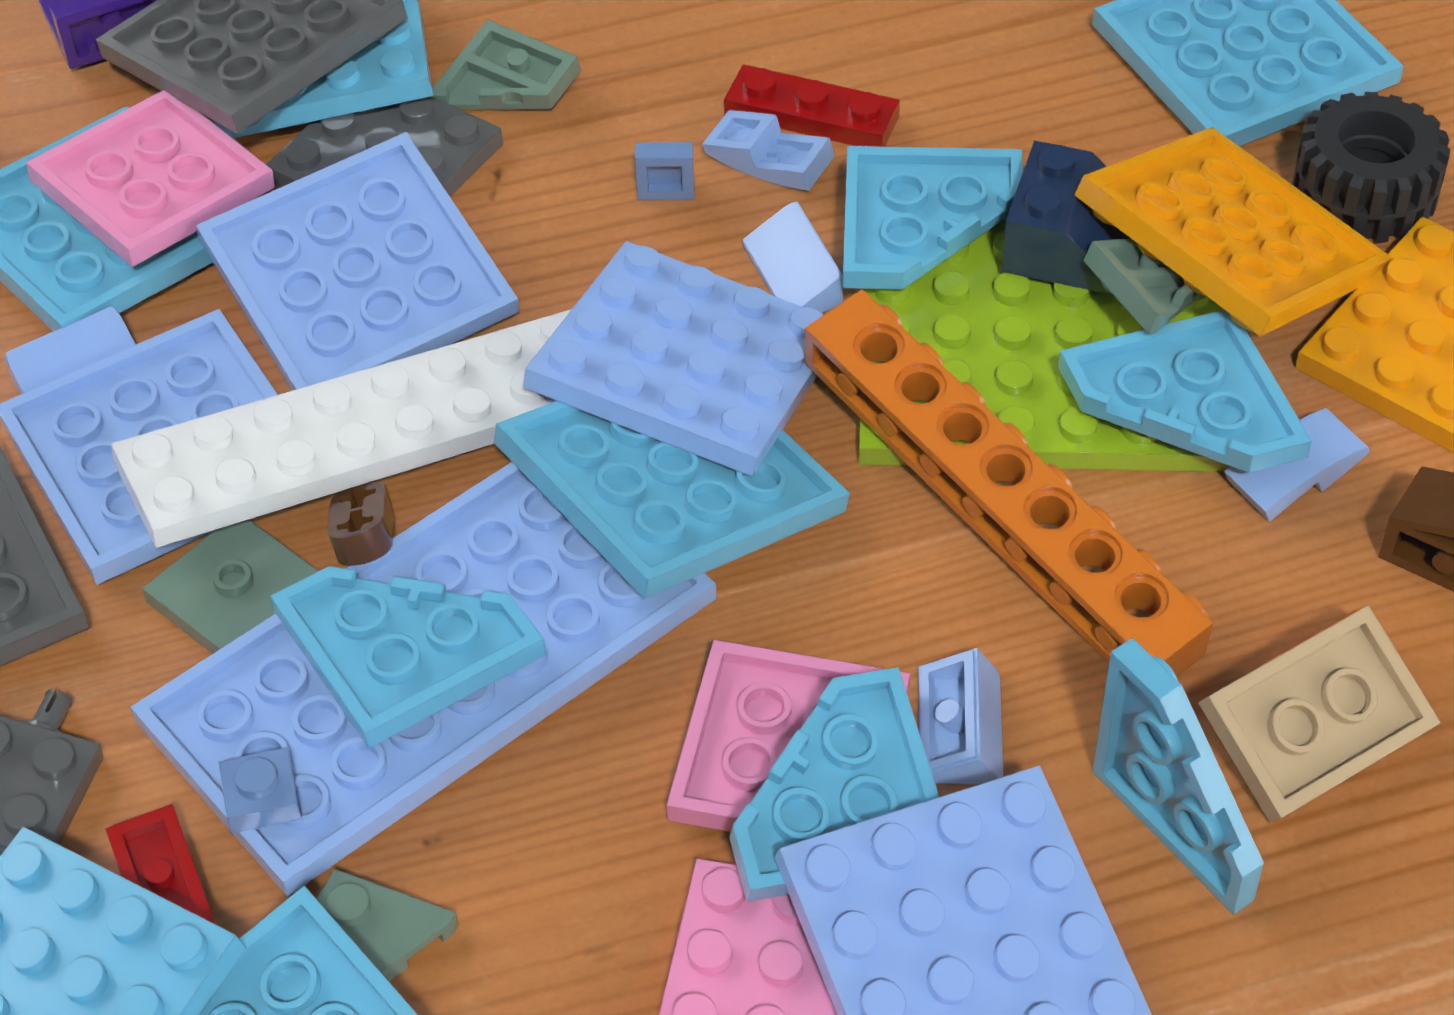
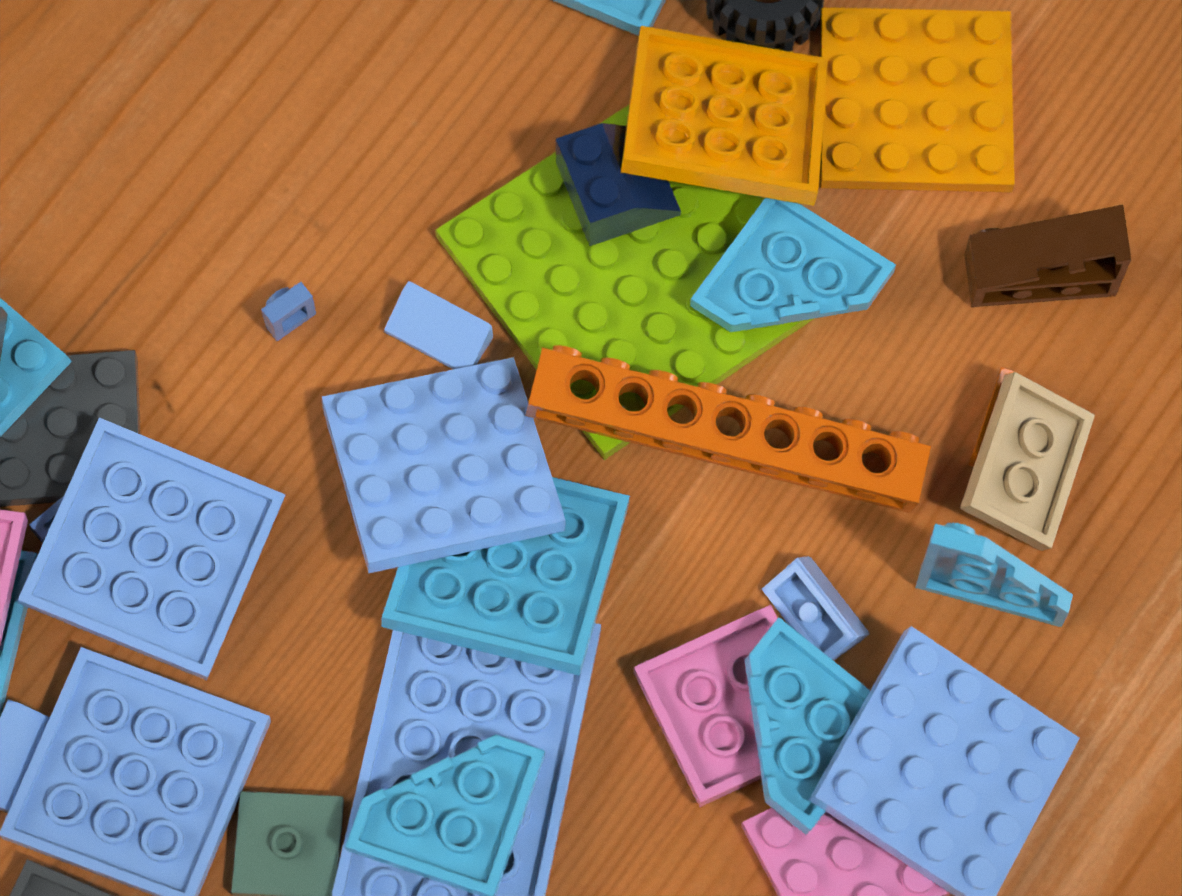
camera: 40 degrees left, 20 degrees up
(330, 434) = (264, 681): white plate -> none
(361, 524) = (331, 750): reddish brown beam -> none
(506, 72) = (93, 296): sand green wing -> none
(759, 148) = (334, 240): light blue slope -> none
(815, 106) = (337, 178): red plate -> none
(919, 208) = (502, 234): medium azure plate -> none
(1141, 284) = (705, 211): sand green wing -> none
(1331, 455) = (898, 247): light blue slope -> none

